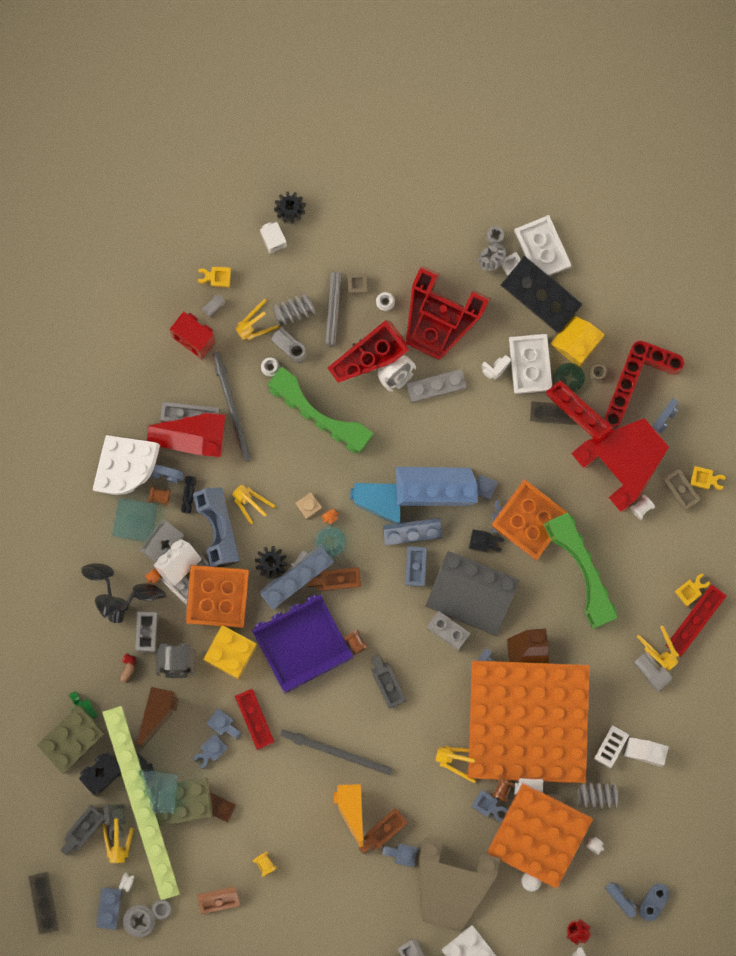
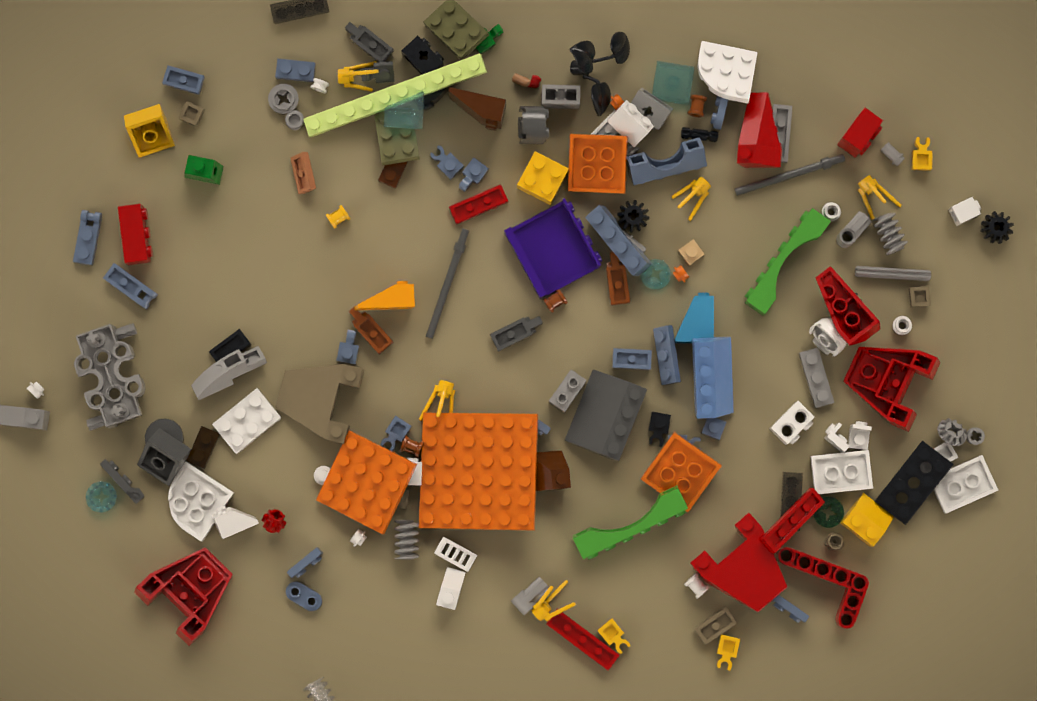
camera: 90 degrees right, 5 degrees up
(477, 413) = (788, 419): none -> white brick
(494, 346) = (859, 435): none -> white bracket

